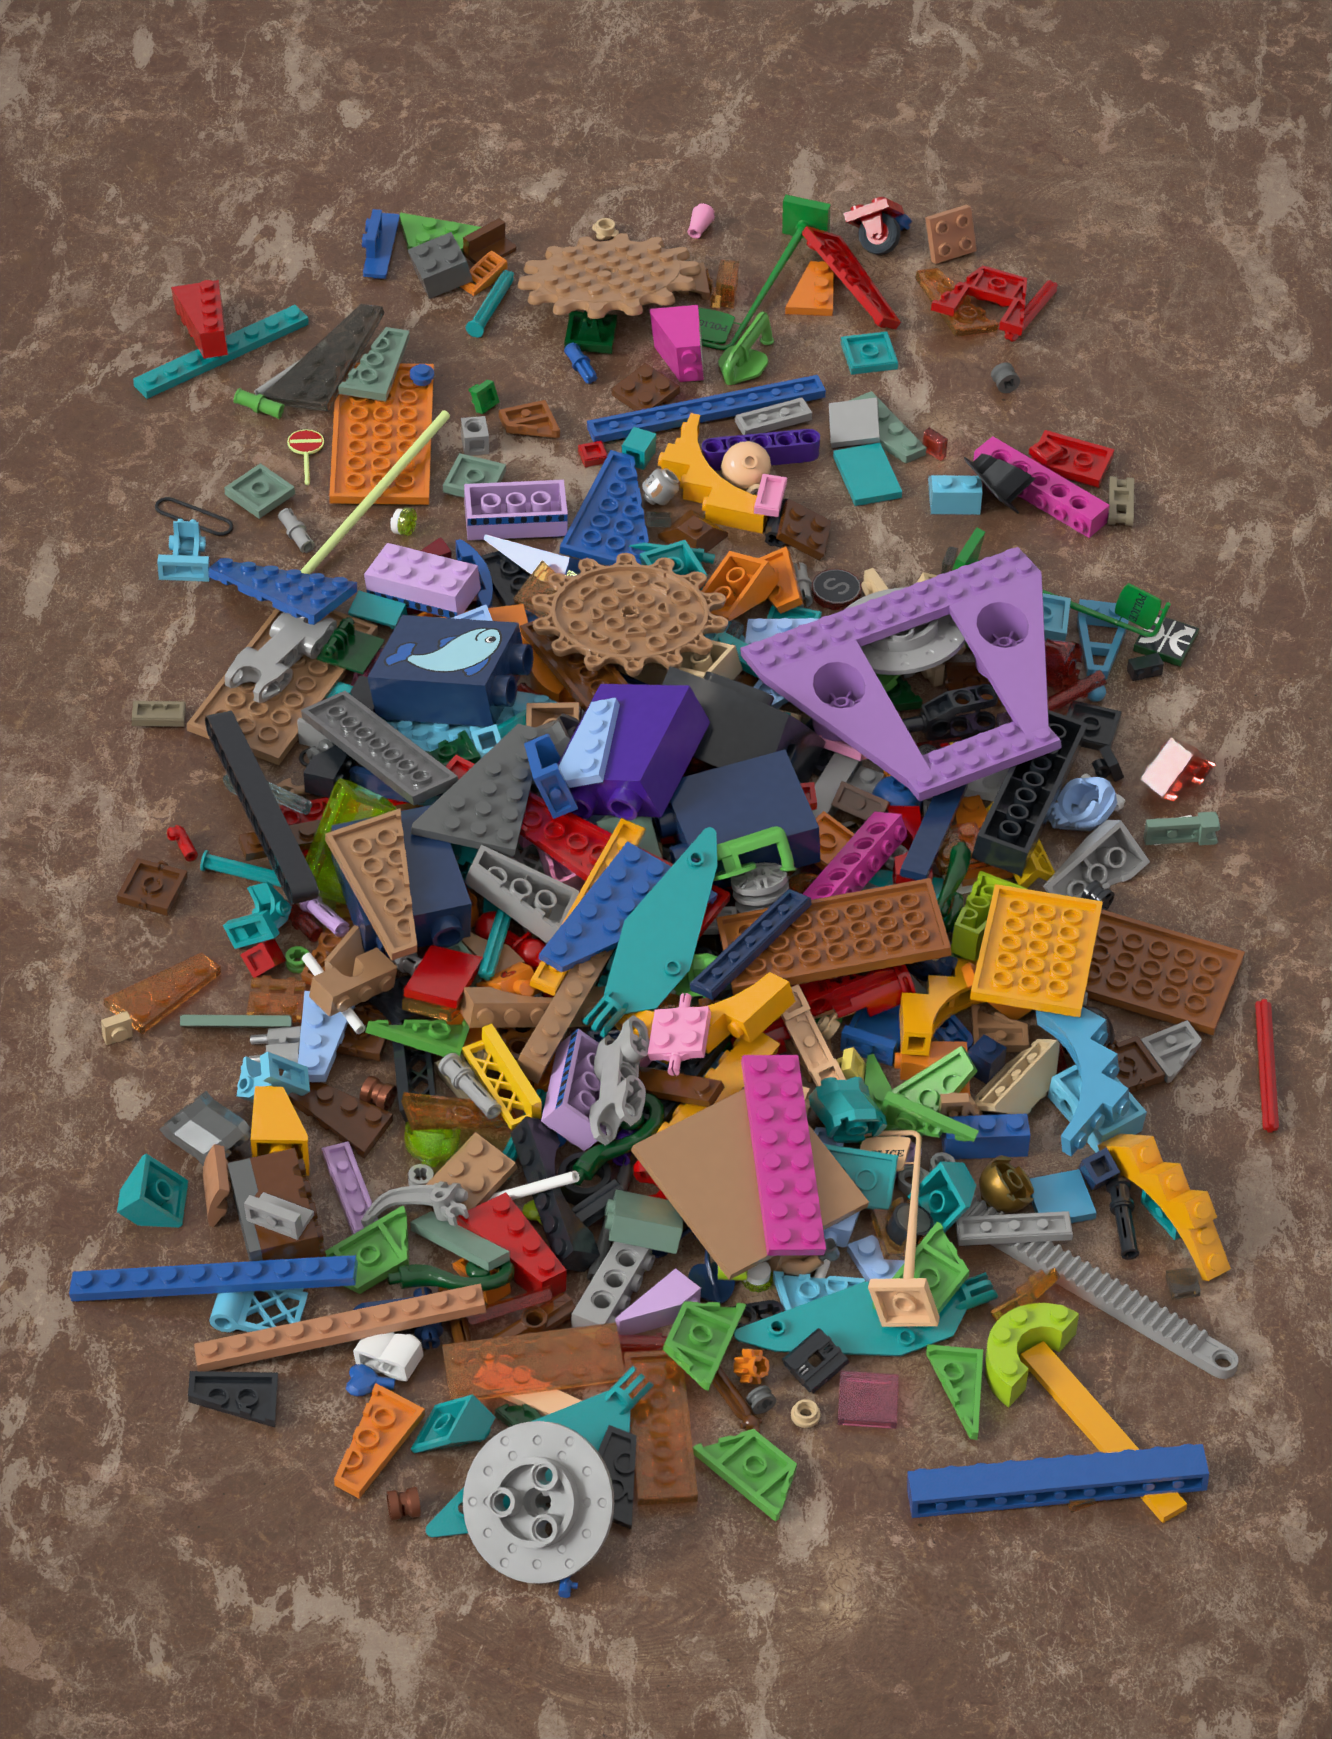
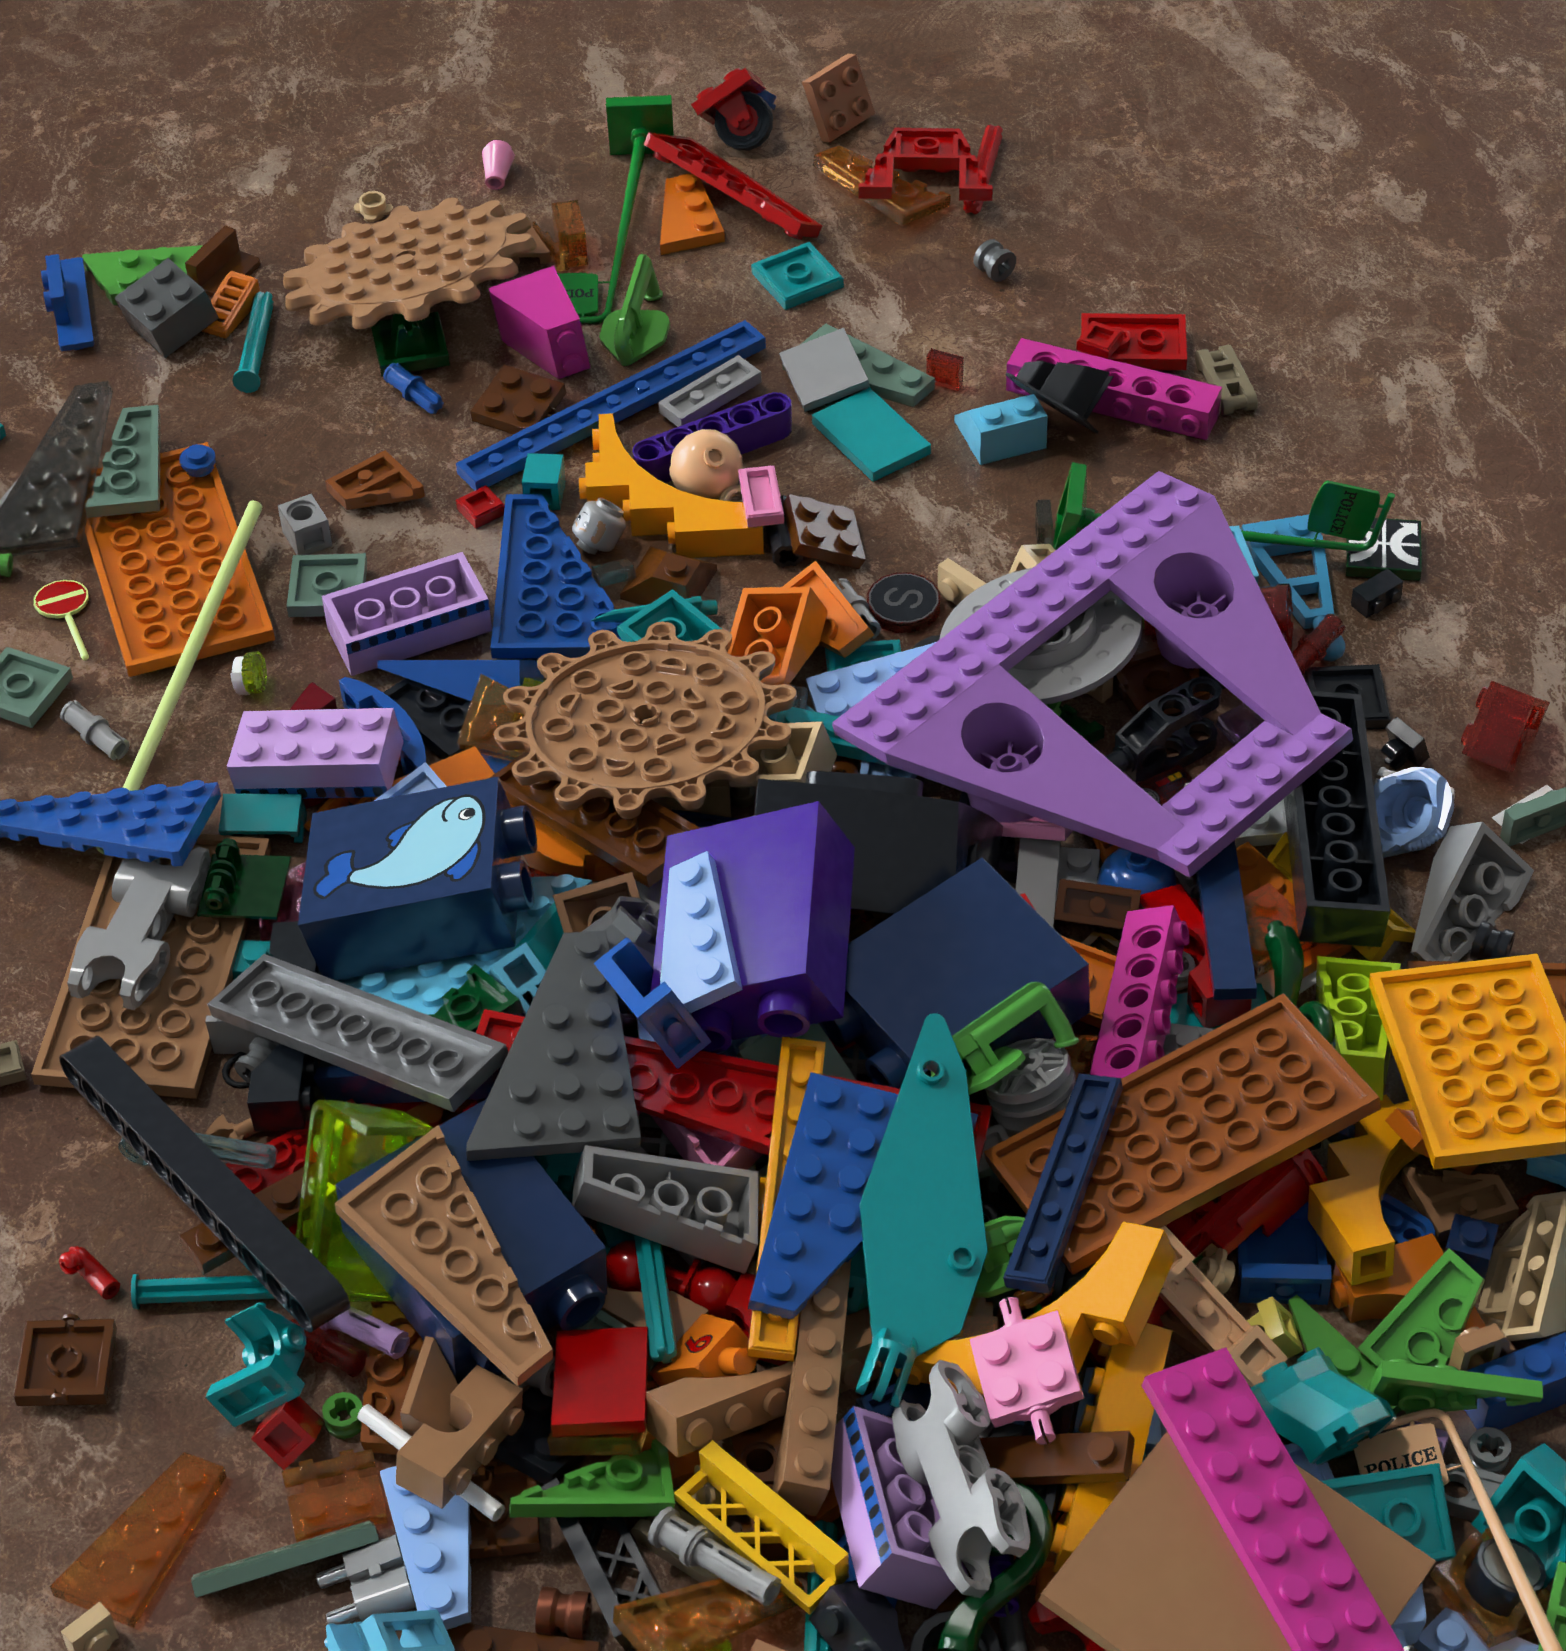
camera: 15 degrees left, 0 degrees up
(484, 396) = (296, 467): green tile -> none

